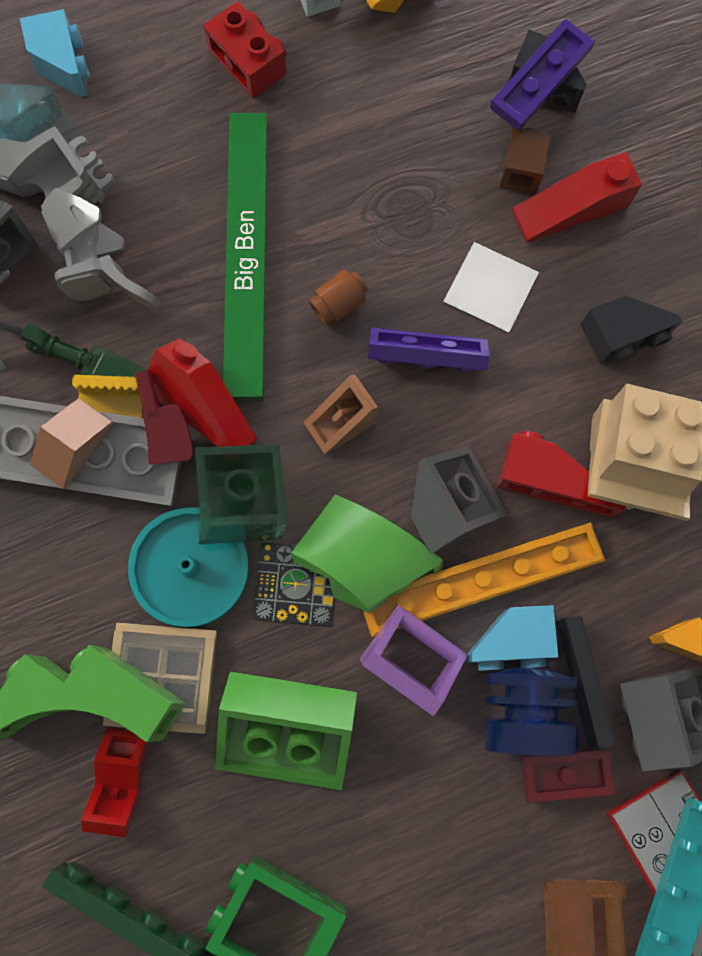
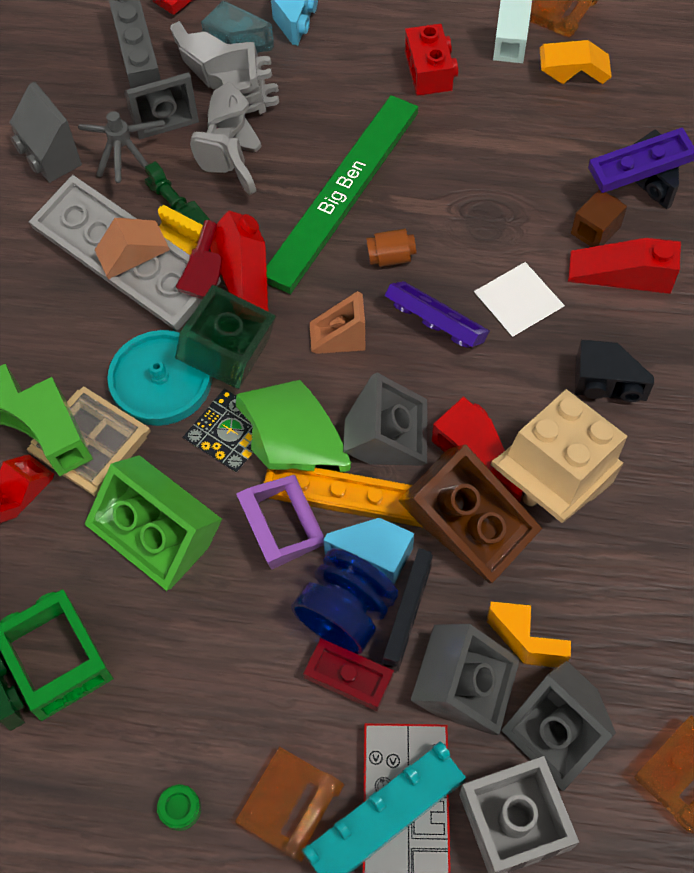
camera: 35 degrees right, 15 degrees down
(588, 551) = (471, 512): none -> reddish brown slope

